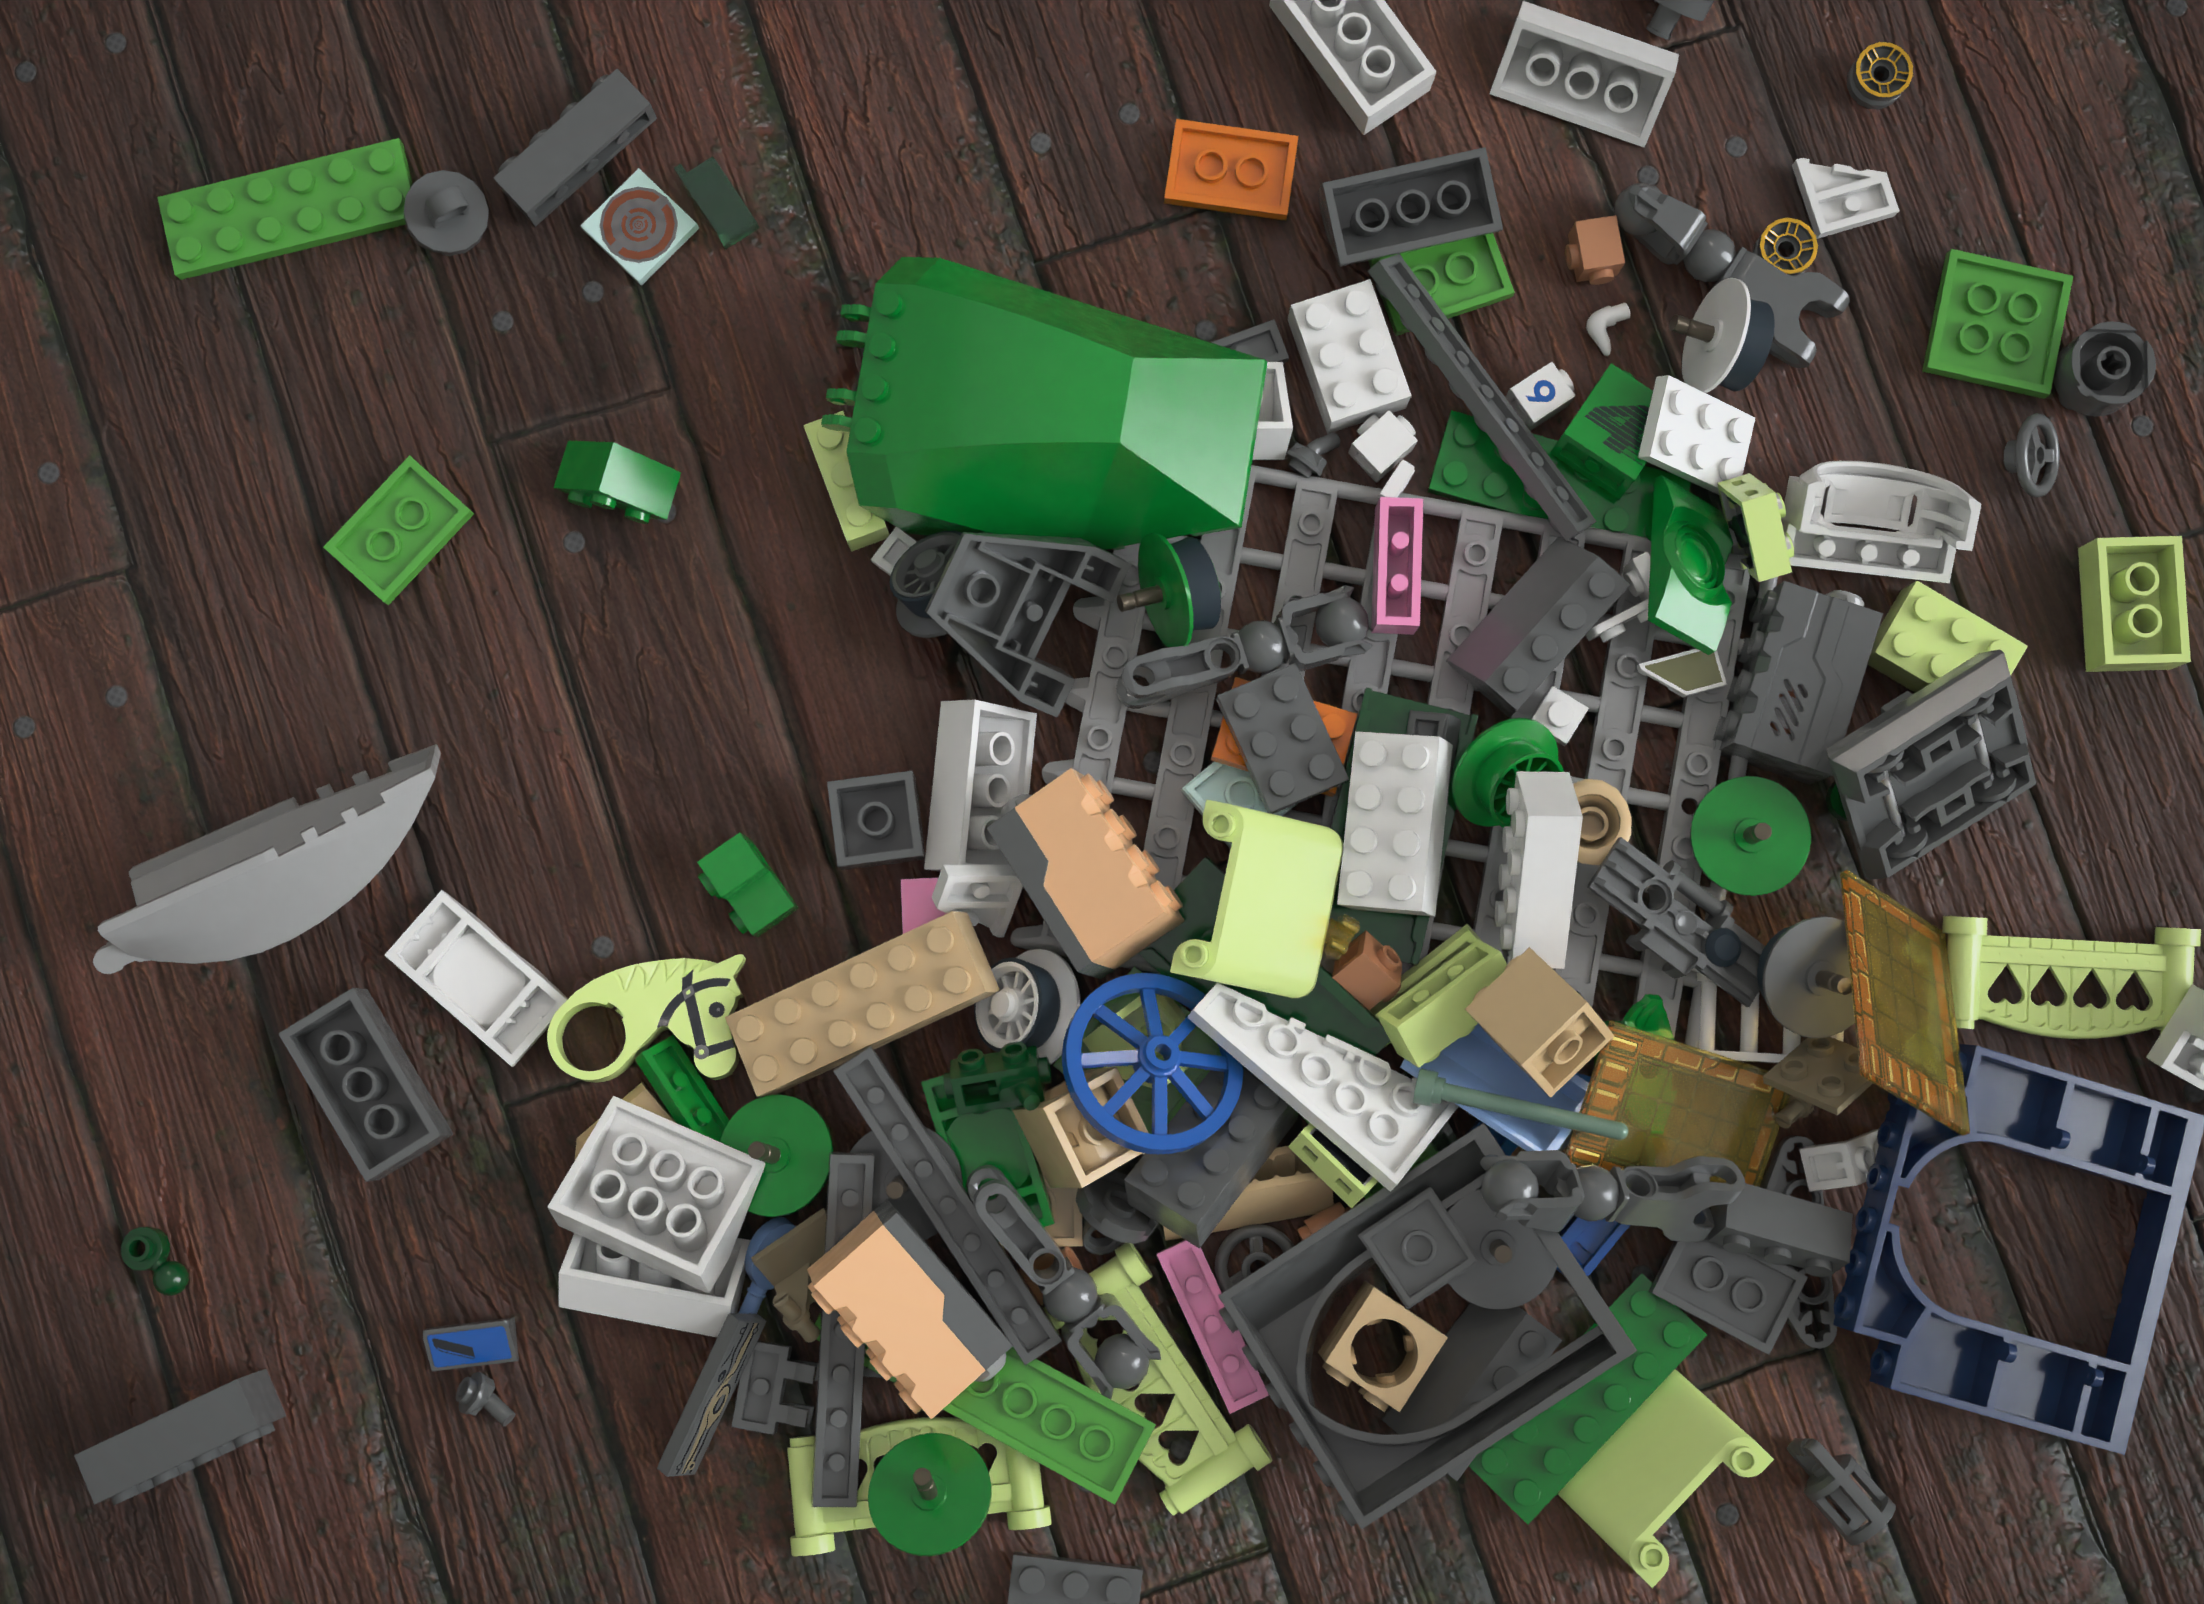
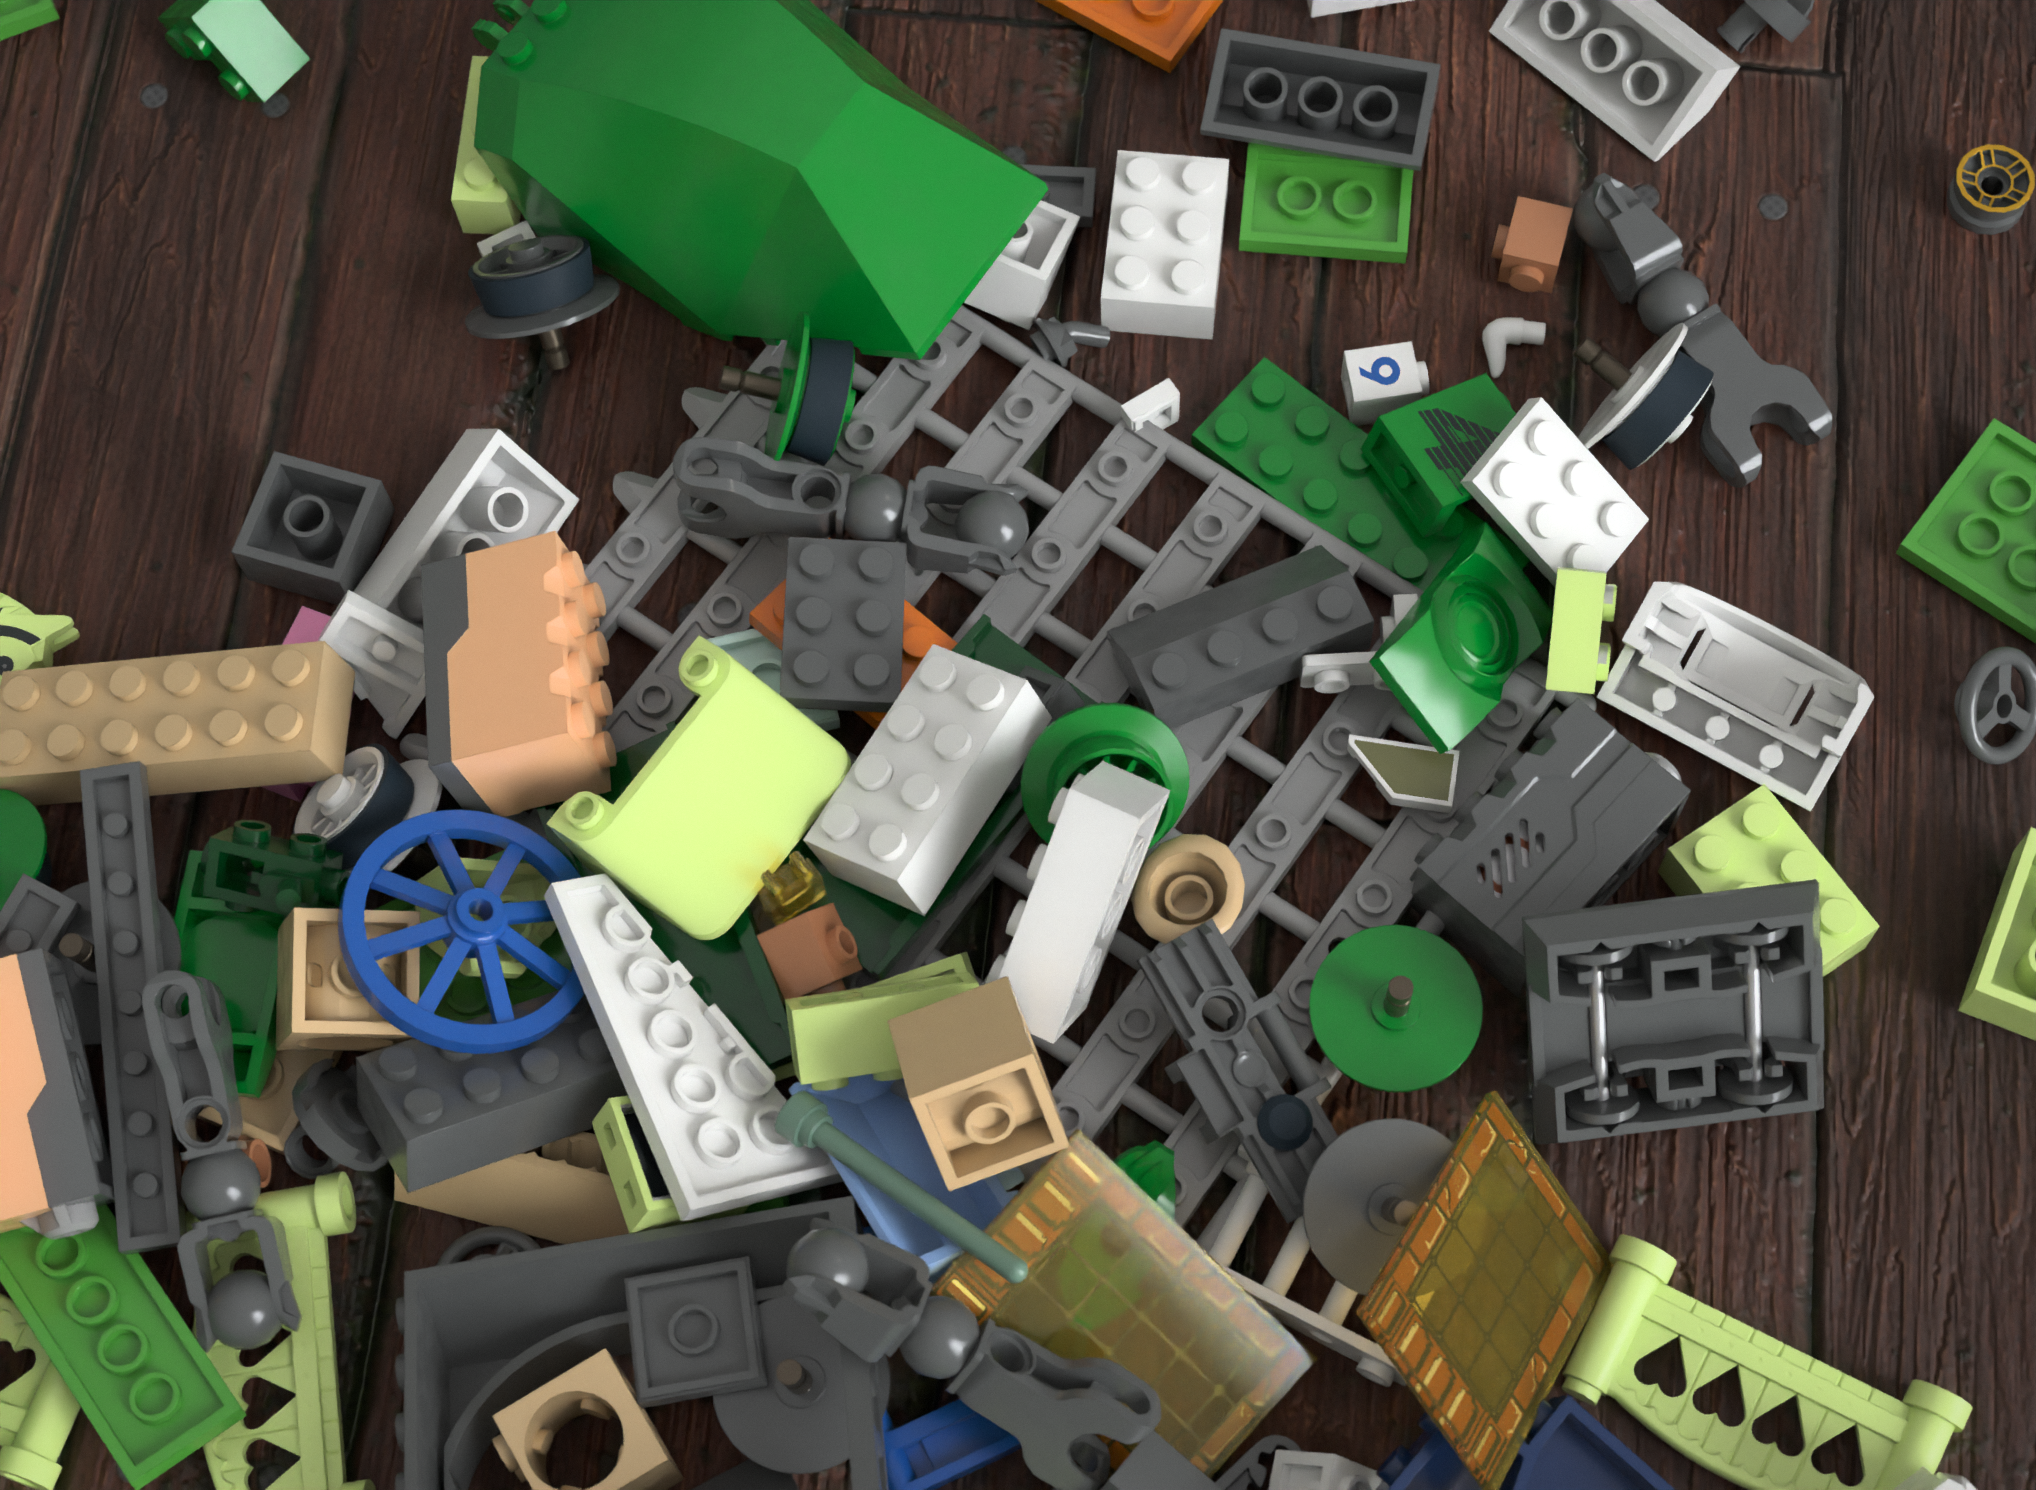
camera: 30 degrees right, 15 degrees down
(748, 883) = (124, 534): green brick -> none
(1004, 596) = (590, 323): dark grey wedge -> none
(1222, 1350) = (396, 1242): bright pink plate -> none
(1382, 444) = (1158, 352): white brick -> none
(1397, 565) = (1092, 486): bright pink brick -> none
(1482, 397) = (1303, 350): dark grey plate -> none
(1560, 714) = (1217, 757): white plate -> none
(1791, 235) = (1791, 324): dark grey wheel -> none
(1819, 1075) = (1332, 1350): dark tan plate -> none
(1843, 197) = (1882, 309): white wing -> none

